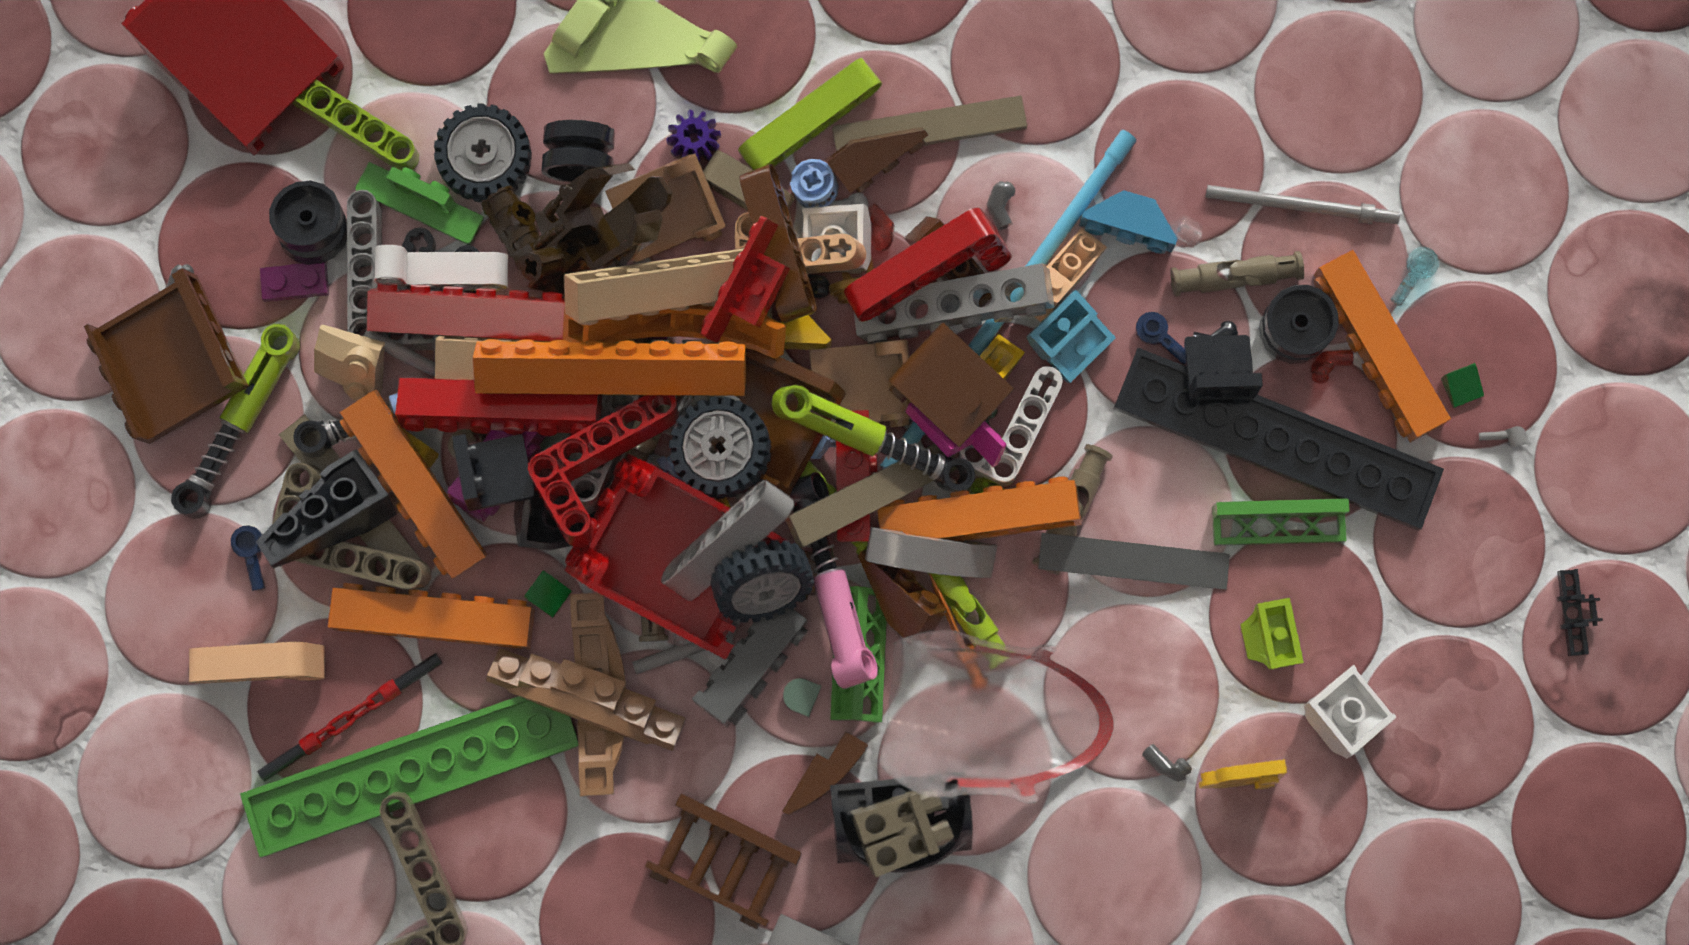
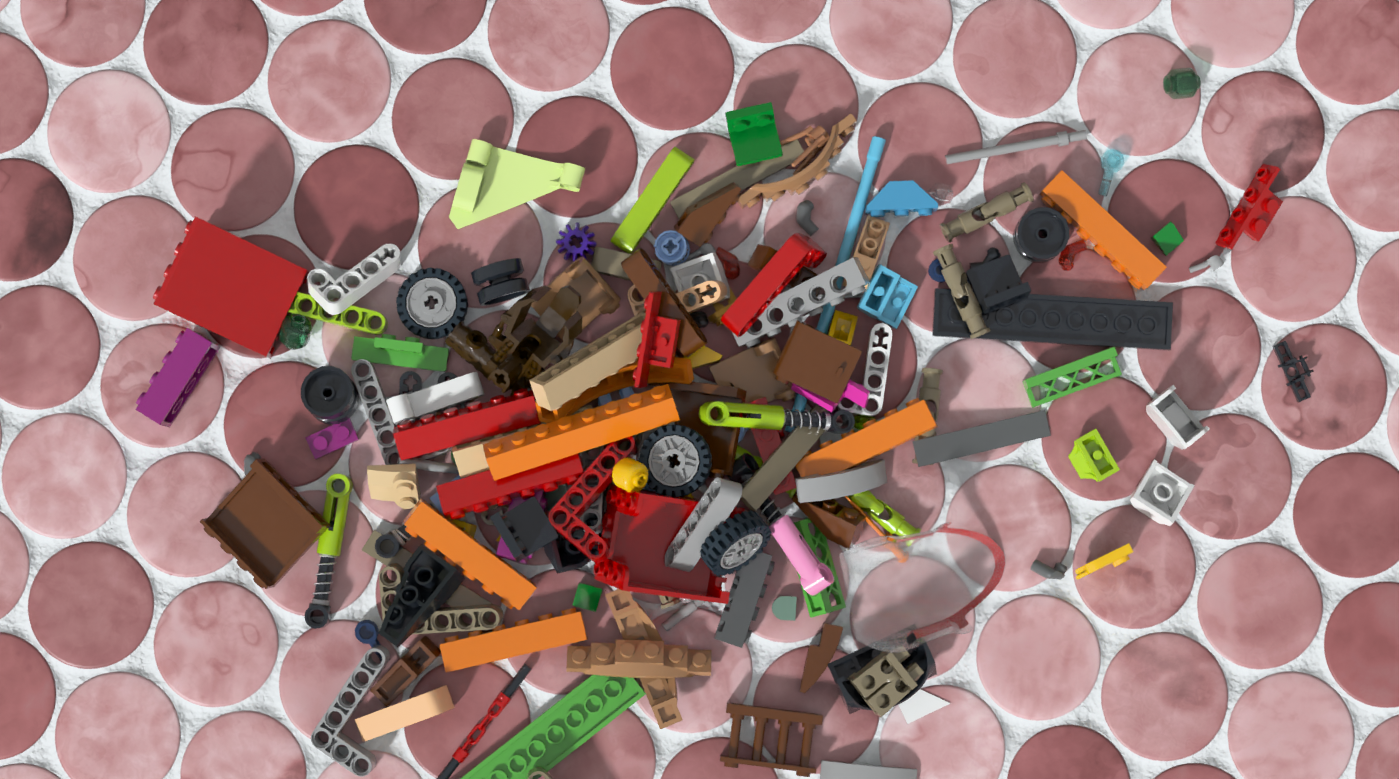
camera: 20 degrees left, 5 degrees up
(123, 136) = (177, 377): none -> magenta brick
(183, 634) = (347, 709): none -> light grey beam
(279, 609) = (406, 671): none -> reddish brown slope
(295, 129) = (295, 331): none -> clear green head
(406, 87) = (383, 261): none -> white beam
(654, 443) = (630, 475): none -> yellow head
(935, 885) = (920, 705): none -> white sticker
(968, 74) = (753, 134): none -> green bracket
(1009, 152) = (799, 181): none -> medium nougat piece
(1044, 110) = (815, 140): none -> nougat plant
(1169, 347) = (957, 282): none -> dark tan piece
(1397, 618) = (1175, 419): none -> white piece
(1545, 193) = (1181, 83): none -> clear green head
(1589, 386) = (1254, 209): none -> red bracket

